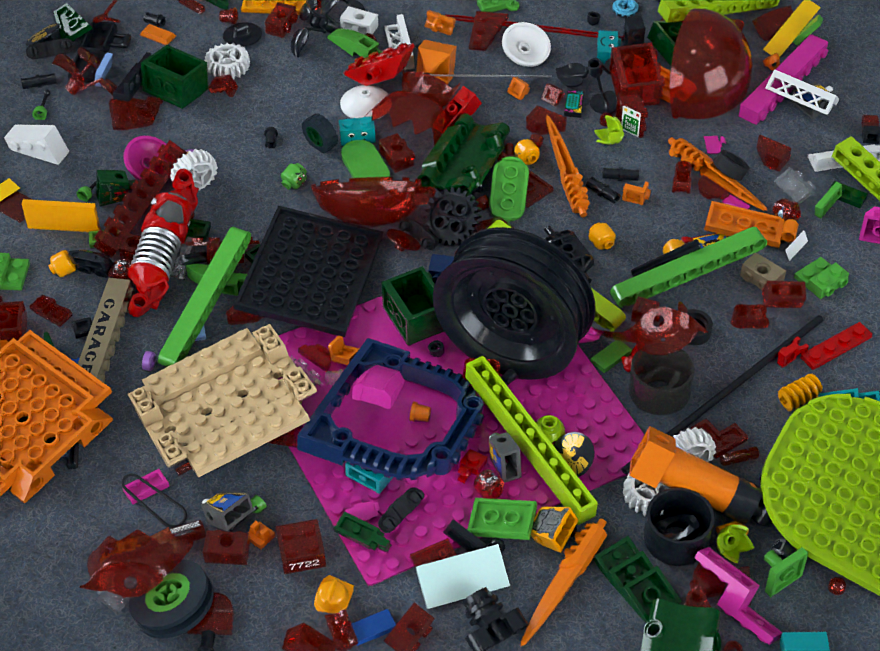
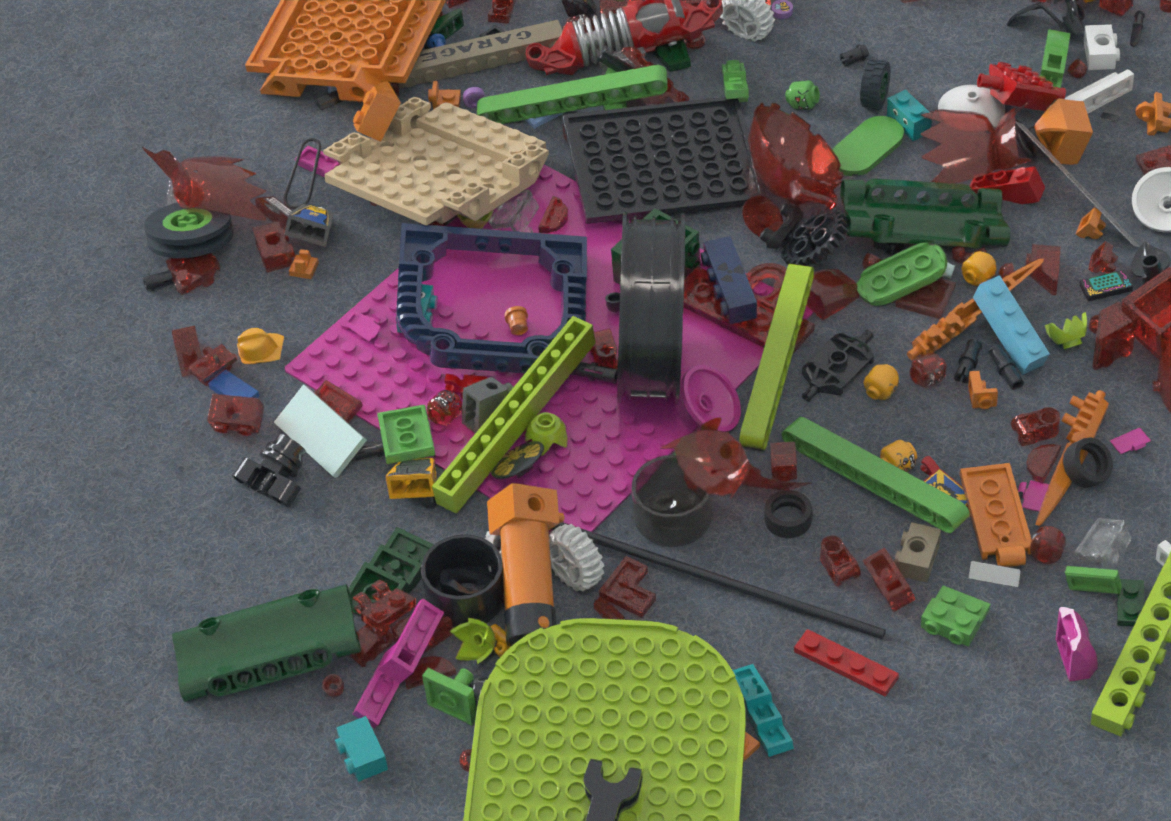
camera: 70 degrees right, 0 degrees up
(131, 380) = (439, 97): none -> orange bracket
(138, 416) = (377, 112): none -> orange slope
(256, 207) = (735, 81): none -> bright green slope
(258, 506) = (336, 247): bright green hinge -> none
(300, 546) = (298, 297): clear red brick -> none
(340, 352) = (565, 223): orange bracket -> none
(361, 532) = (333, 333): dark green hinge -> none
(378, 386) = (510, 262): dark pink slope -> none
(396, 152) = (899, 159): clear red brick -> none
(400, 509) = (376, 351): black piece -> none
(463, 537) = (365, 412): black tile -> none
(575, 563) = (372, 513): orange piece -> none
(596, 151) = (1011, 325): none -> medium azure brick
(603, 209) = (928, 370): none -> clear red head
(667, 257) = (875, 448): black axle -> none
(684, 582) = (387, 609): none -> clear red plate
(773, 153) = (1146, 502): clear red slope -> none
(790, 353) = (798, 616): red plate -> none
(799, 392) = (735, 642): light orange piece -> none

